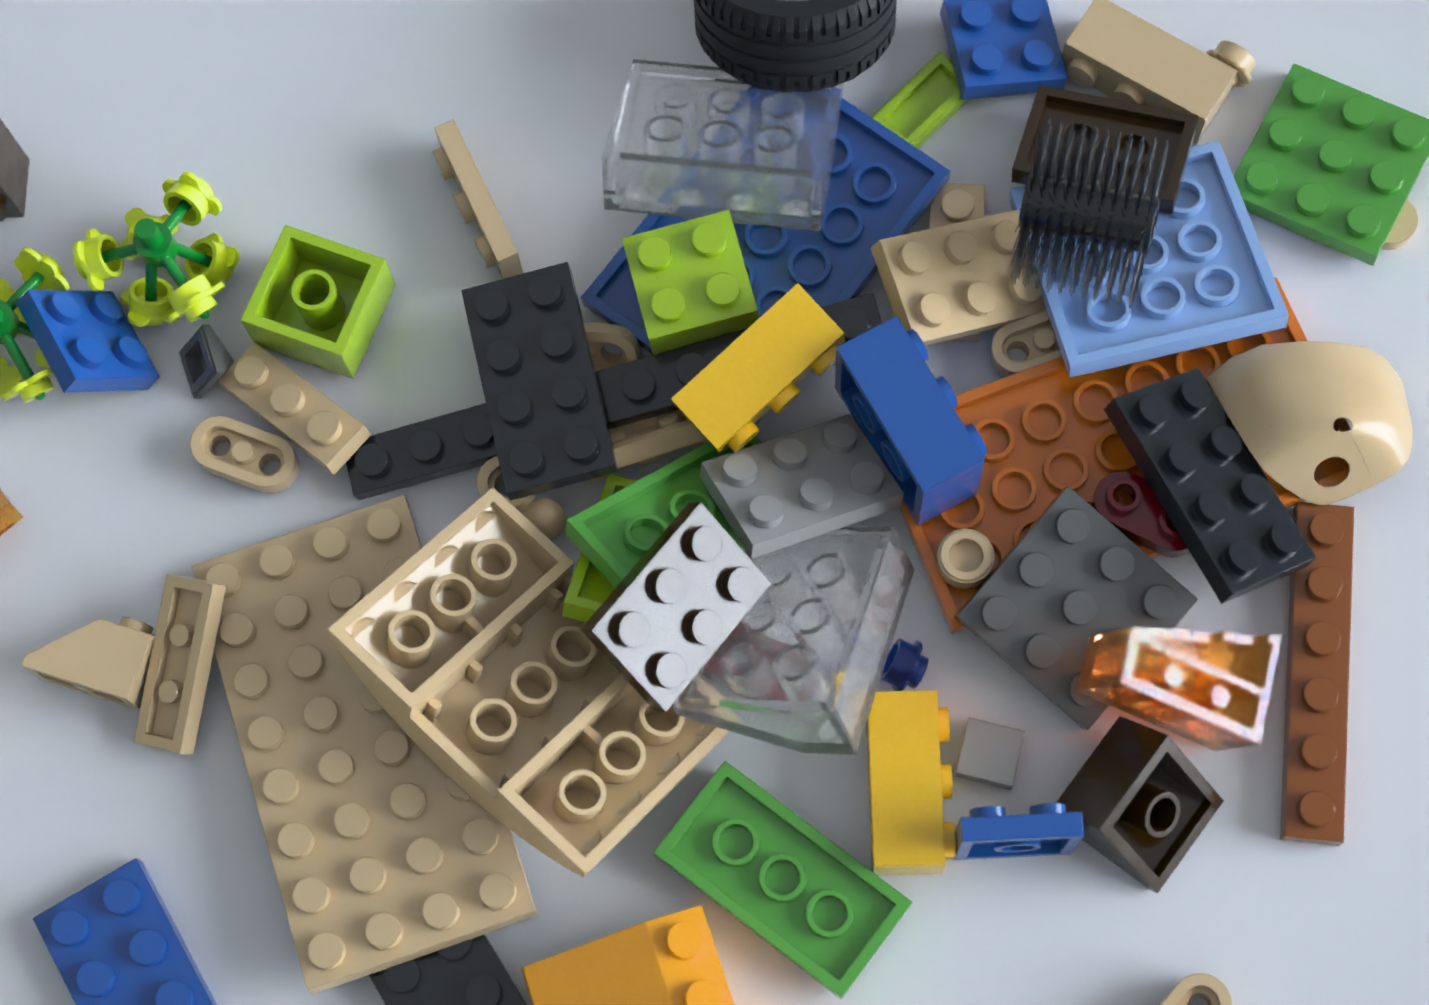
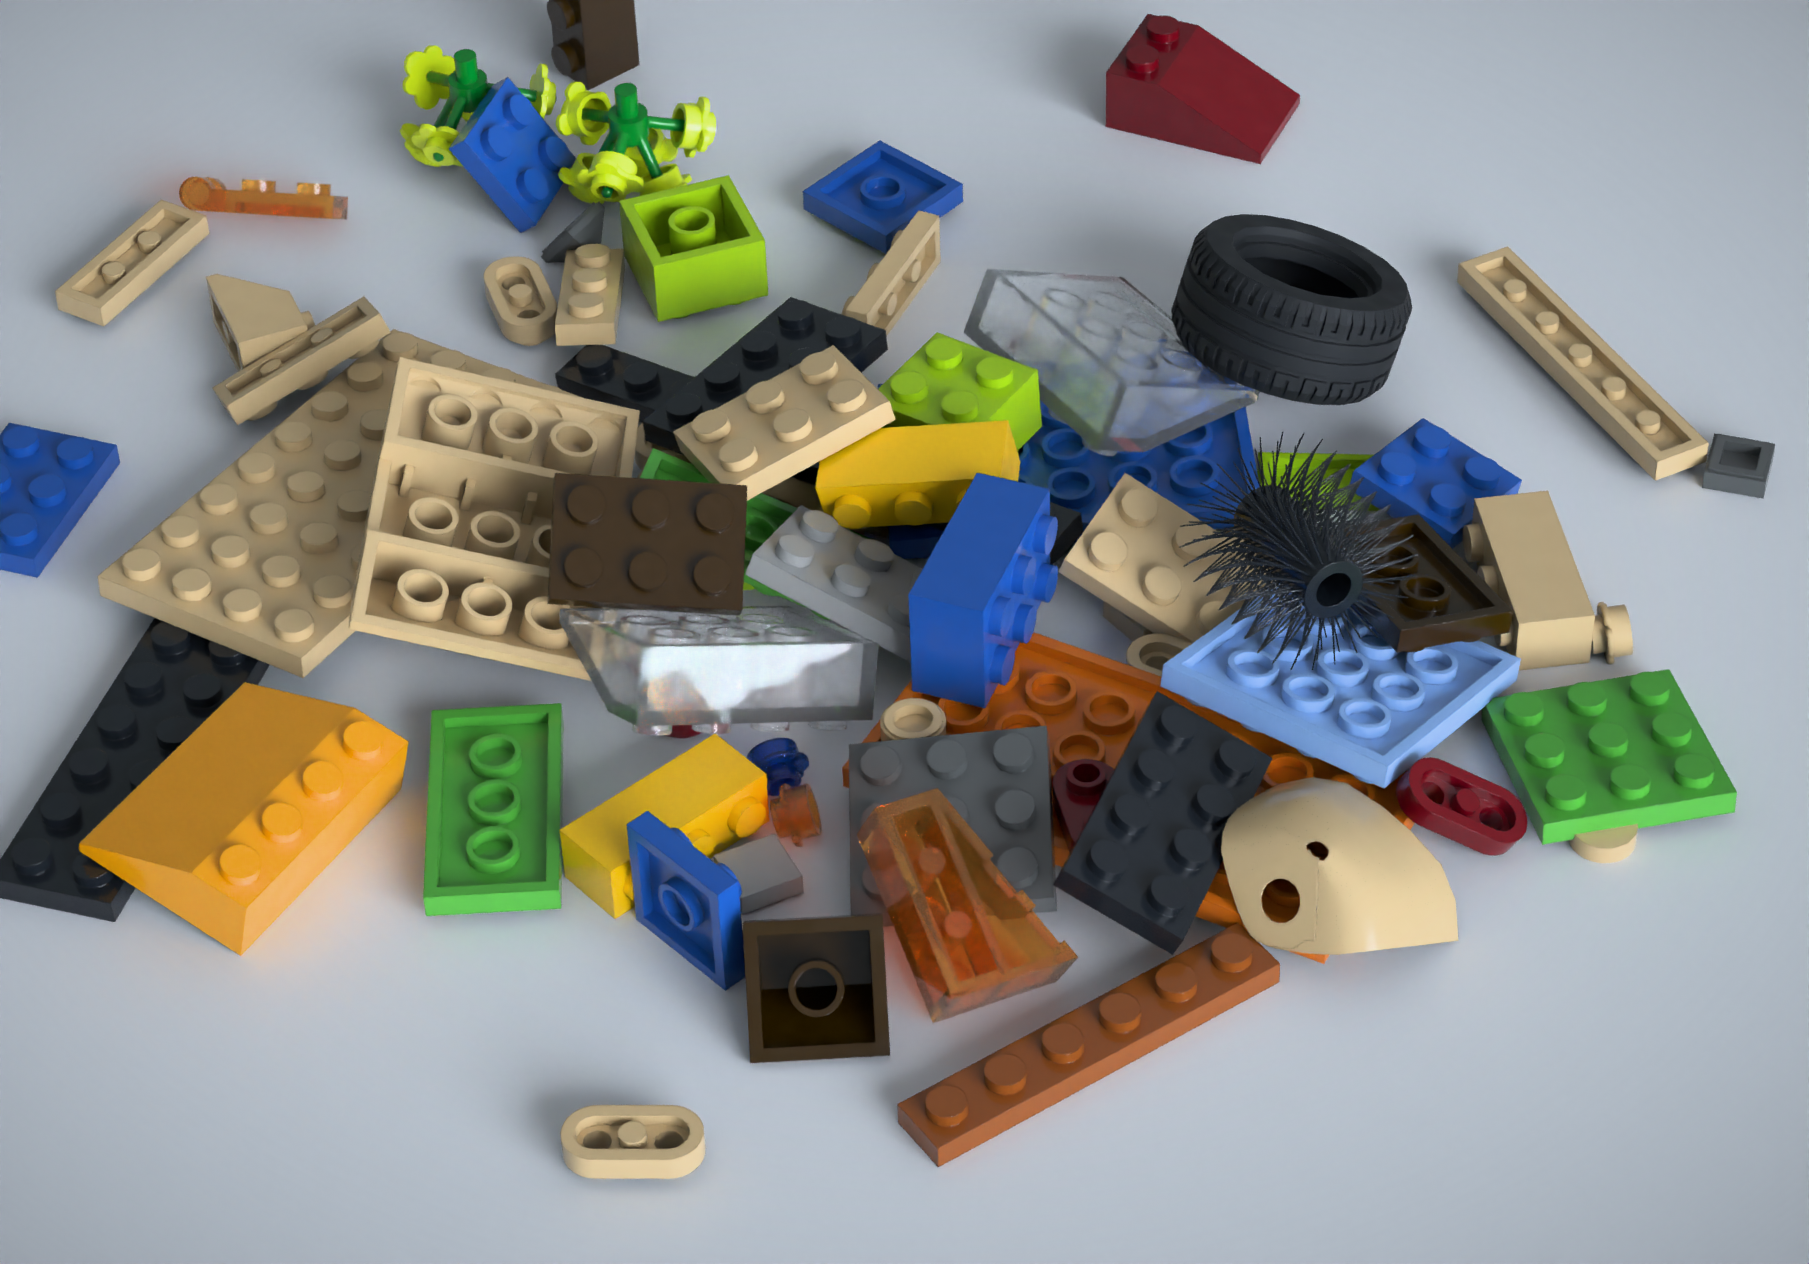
camera: 45 degrees right, 30 degrees down
(368, 128) = (880, 194): none -> blue plate
(641, 421) = (785, 423): none -> tan plate
(960, 688) = (796, 813): none -> clear orange plate
(1325, 291) = (1458, 803): none -> dark red plate

